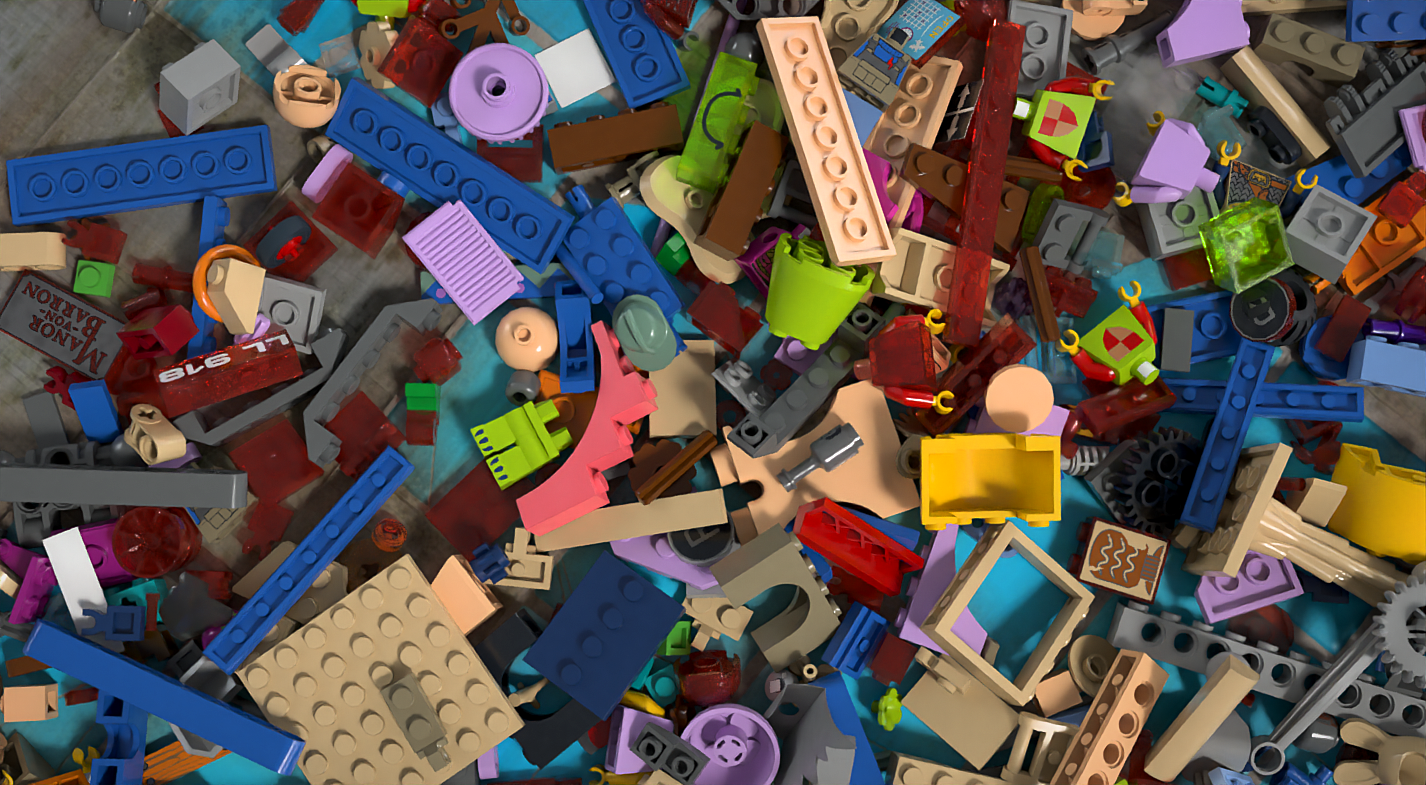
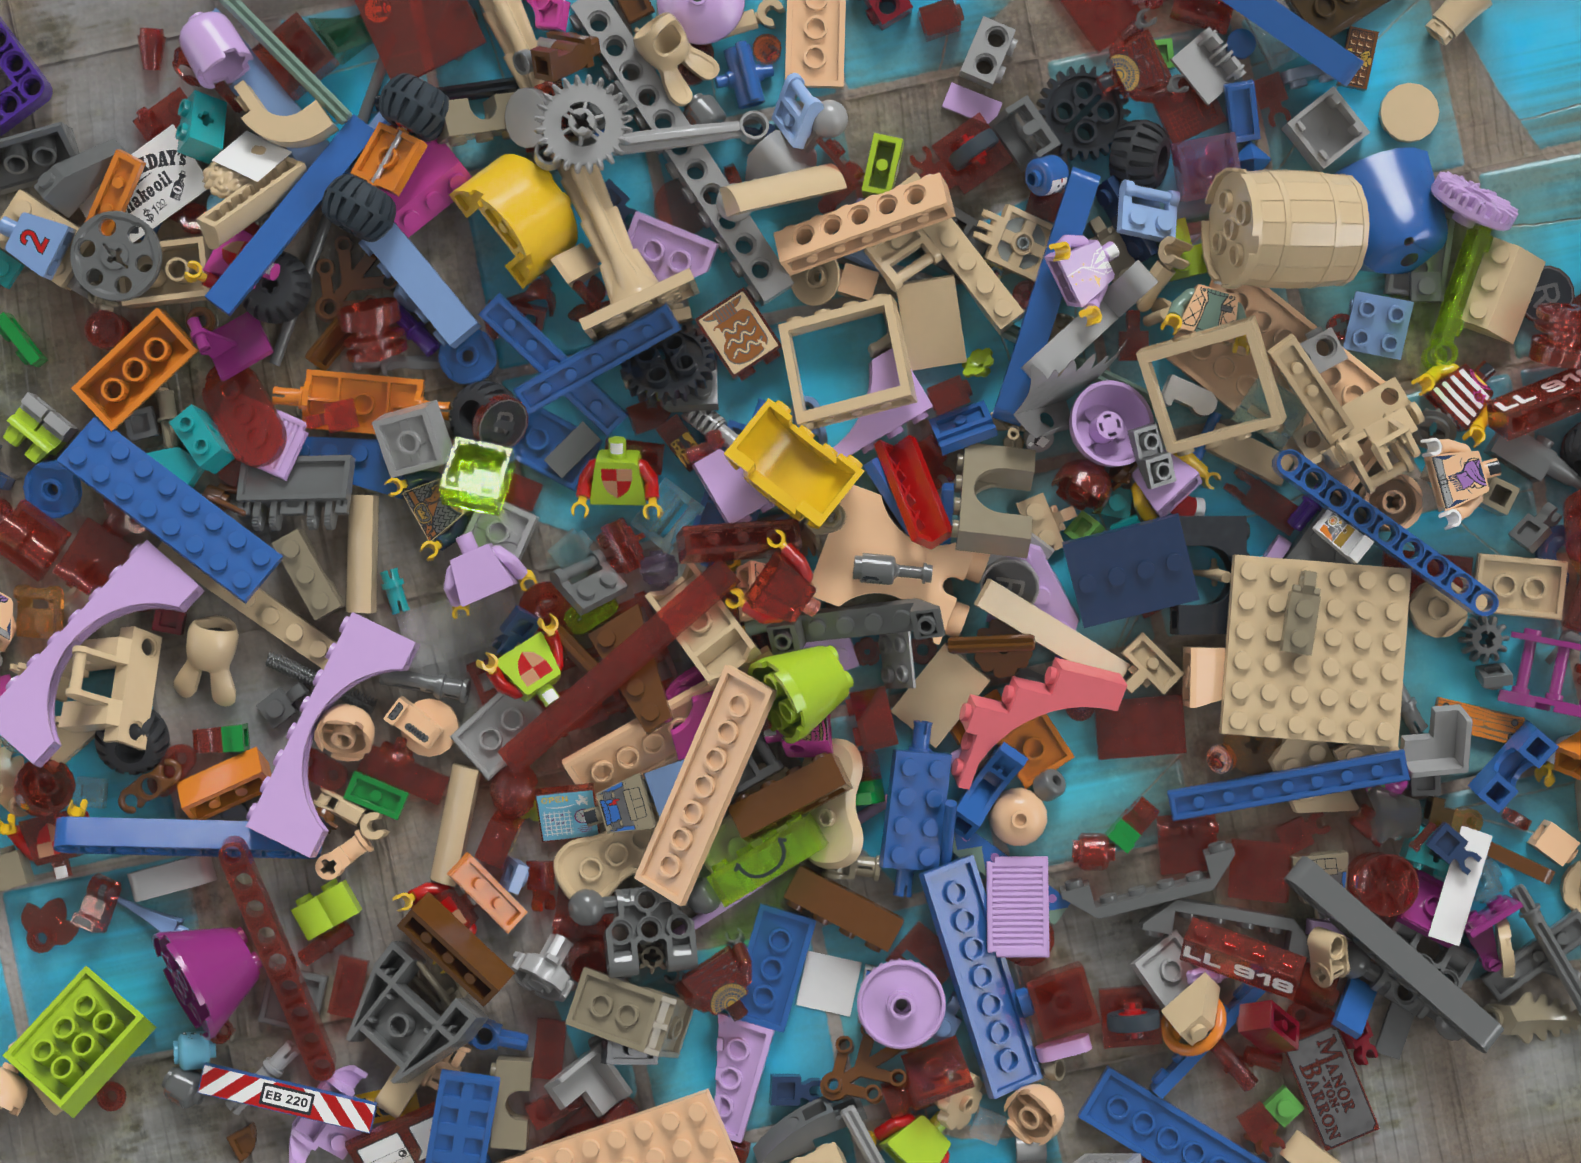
camera: 140 degrees left, 5 degrees up
(164, 697) = (1458, 770): blue beam -> none
(489, 563) = (1169, 682): dark blue gear -> none
(532, 442) = (1072, 744): lime hips -> none
(644, 333) = (937, 754): sand green piece -> none
(948, 676) = (923, 351): tan plate -> none
(959, 112) = (591, 730): black sticker -> none
(1018, 398) = (724, 500): light nougat tile -> none
(1039, 294) = (644, 558): reddish brown axle -> none
(1124, 405) = (650, 435): clear red plate -> none
(1217, 127) = (417, 570): clear light blue bracket -> none
(1280, 142) = (383, 522): black plate -> none
(1343, 328) = (452, 364): clear red piece -> none

